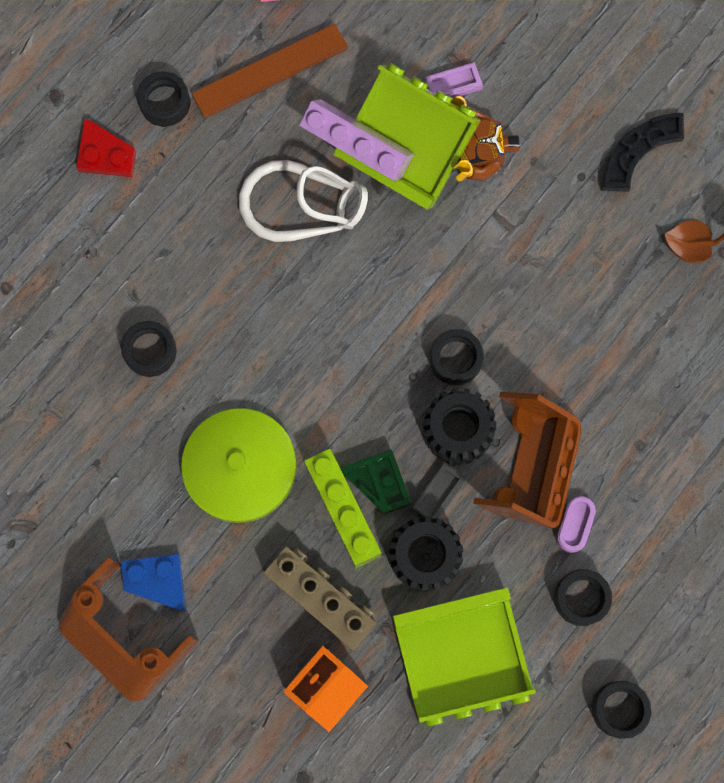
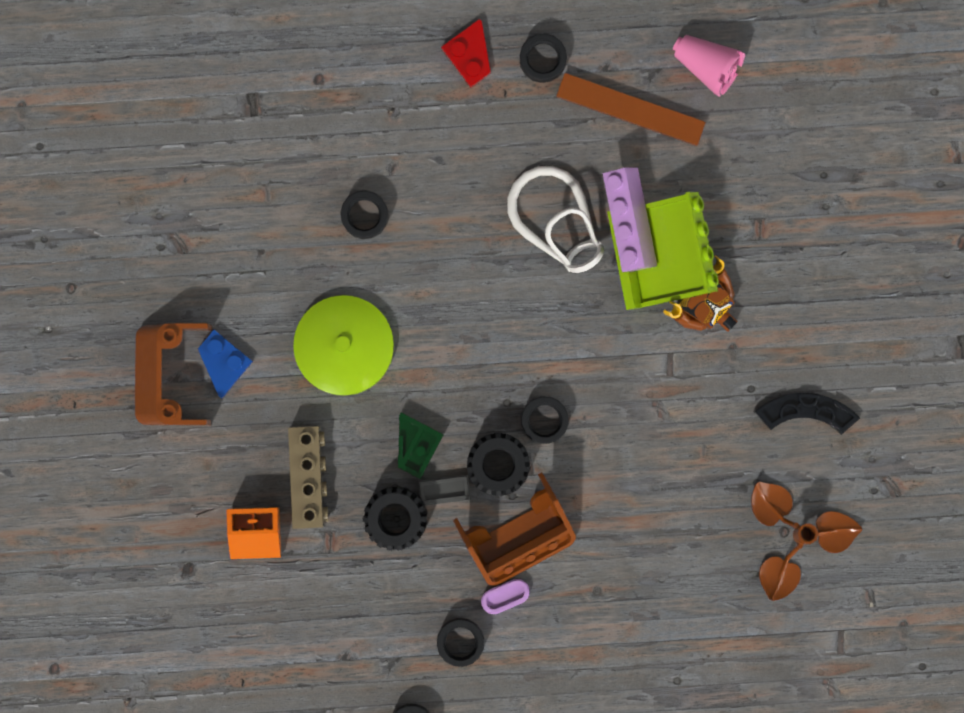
camera: 40 degrees right, 10 degrees up
(343, 508) = (376, 439): lime brick -> none
(455, 81) = (737, 241): lavender tile -> none
(463, 657) = (353, 600): lime panel -> none

